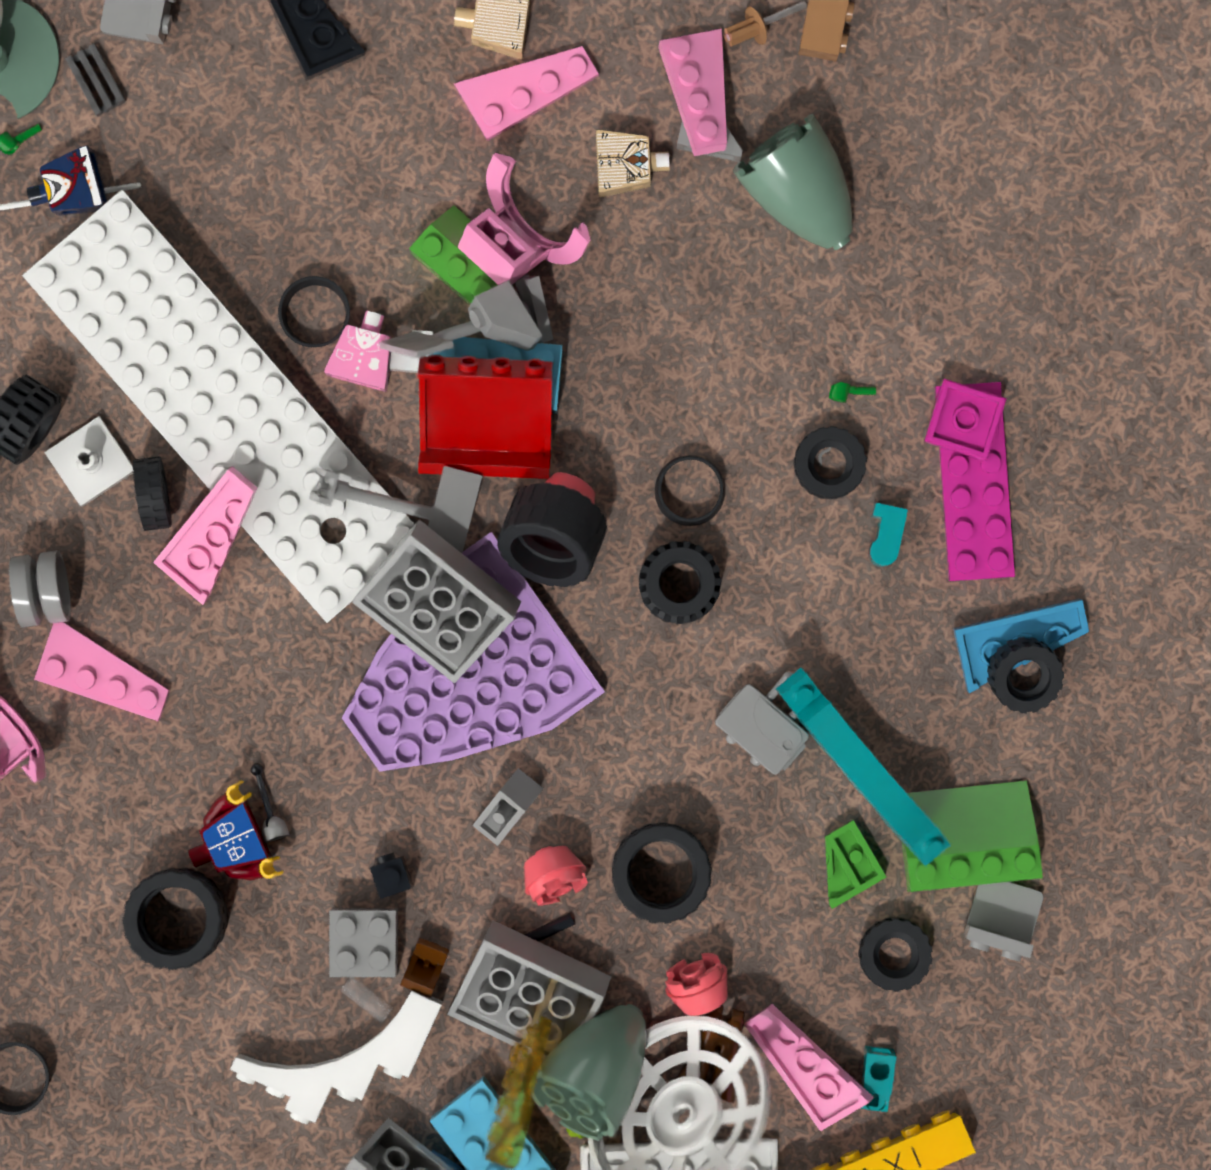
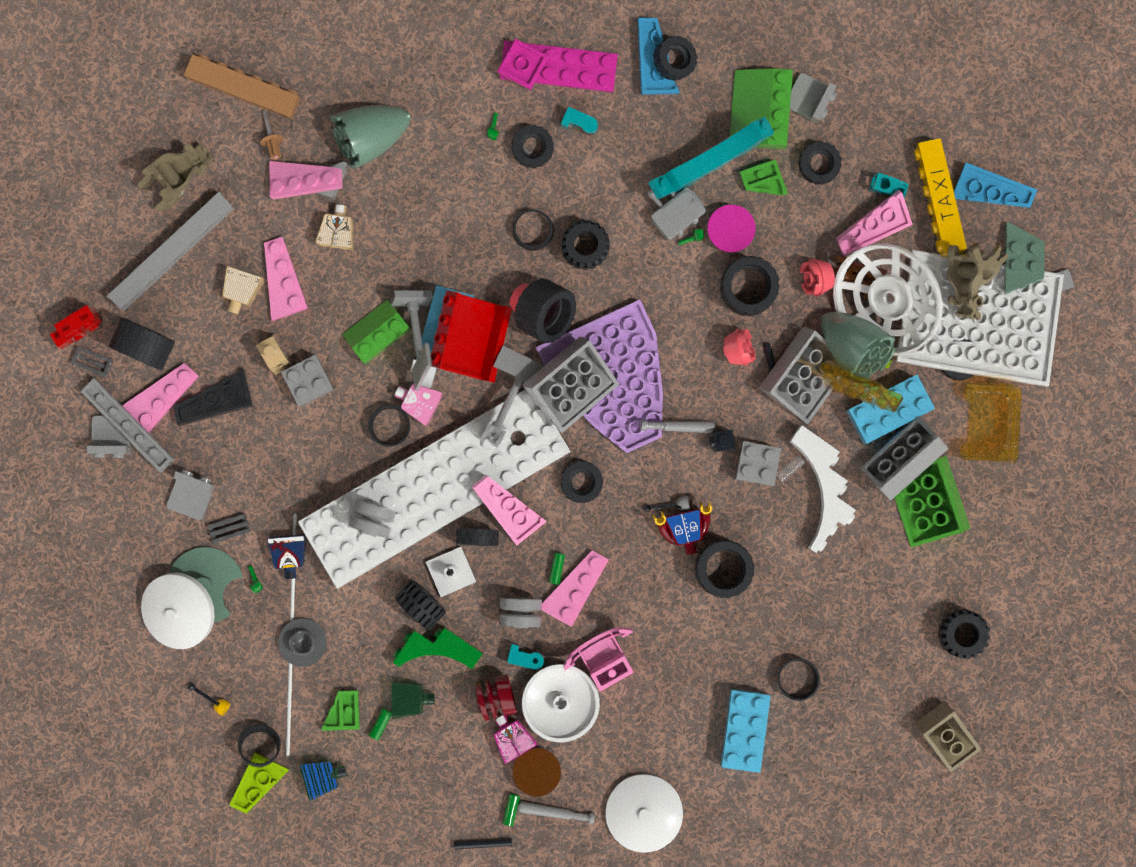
camera: 80 degrees left, 0 degrees up
(127, 636) = (556, 568): none -> green axle
(139, 309) = (372, 518): none -> light grey wheel
(254, 651) = (581, 467): none -> black tyre
(363, 162) = (308, 381): none -> light grey brick
(397, 96) = (273, 354): none -> tan torso
(403, 802) = (680, 426): none -> light grey piece
(425, 967) = (778, 431): reddish brown bracket -> none
(503, 240) = (371, 307): bright pink piece -> none
(504, 317) = (415, 314): light grey slope -> none
(507, 806) = (695, 367): light grey slope -> none
(732, 770) = (698, 235): none -> green hand
(754, 824) = (731, 228): none -> dark pink piece

